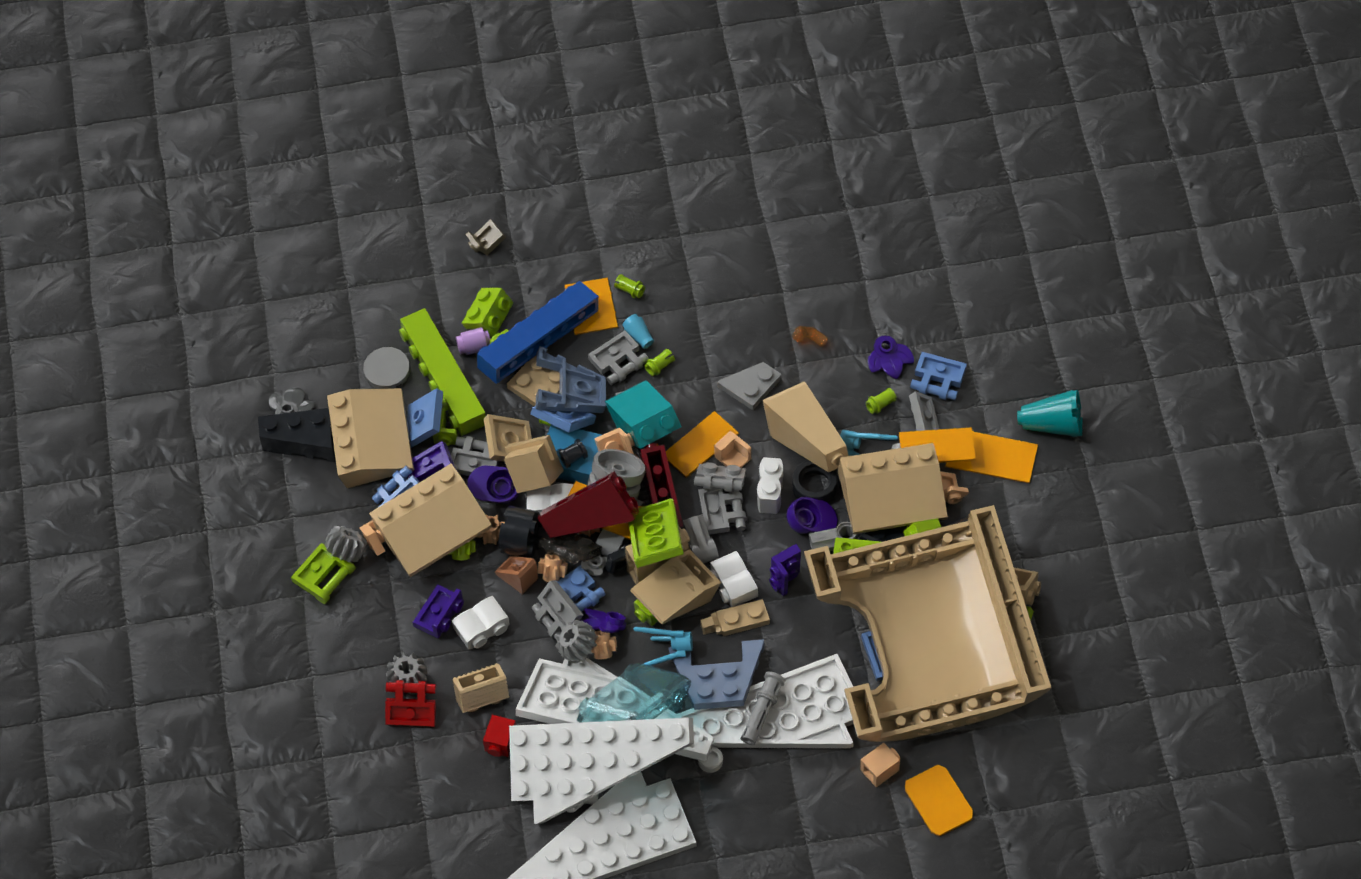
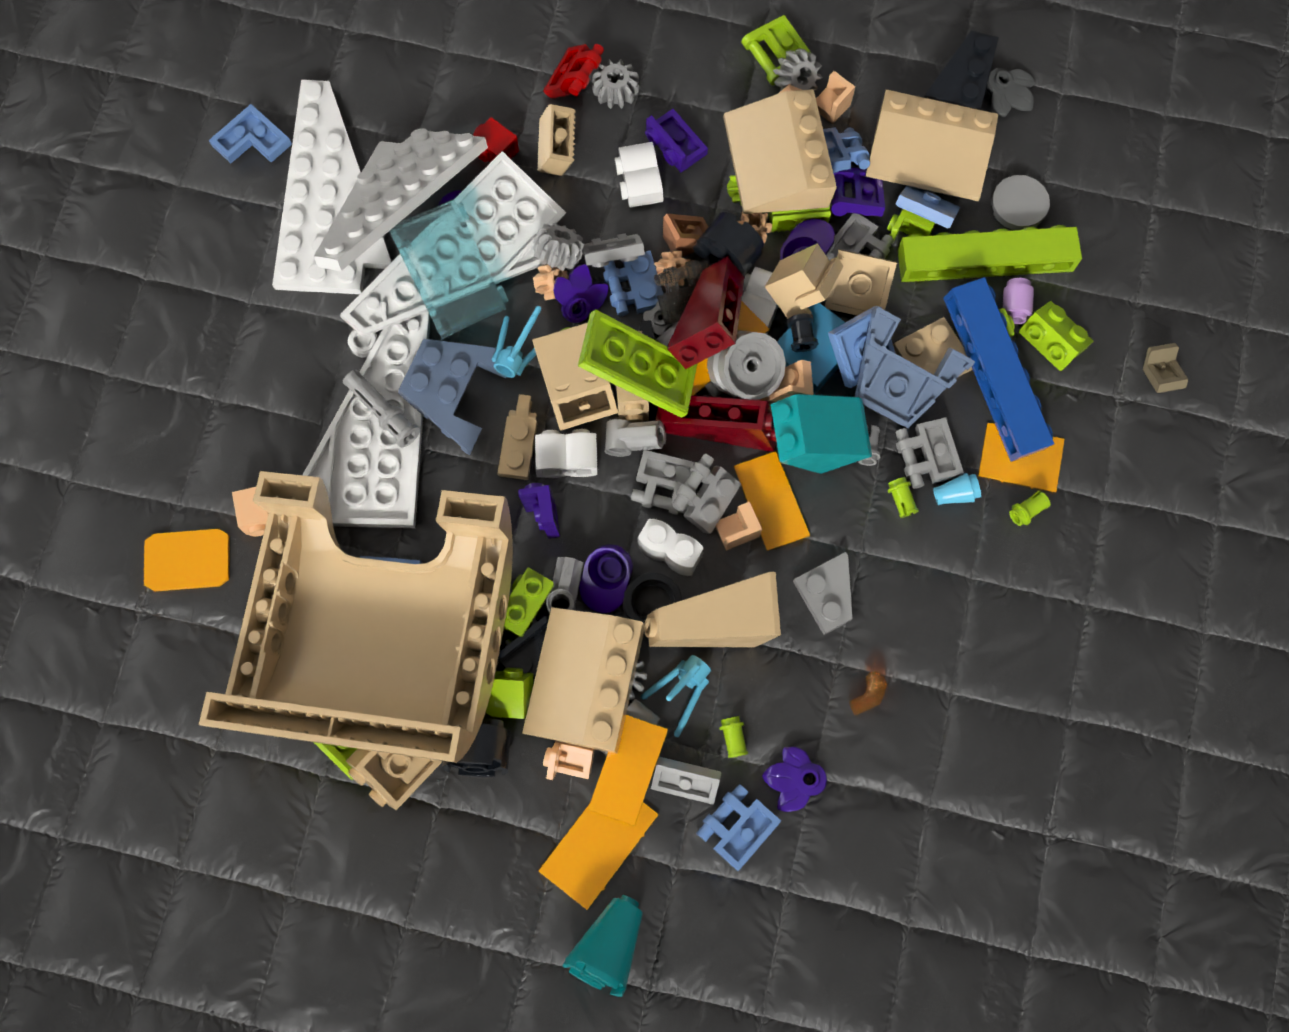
camera: 110 degrees right, 15 degrees up
(353, 514) = (835, 97): none -> light nougat panel

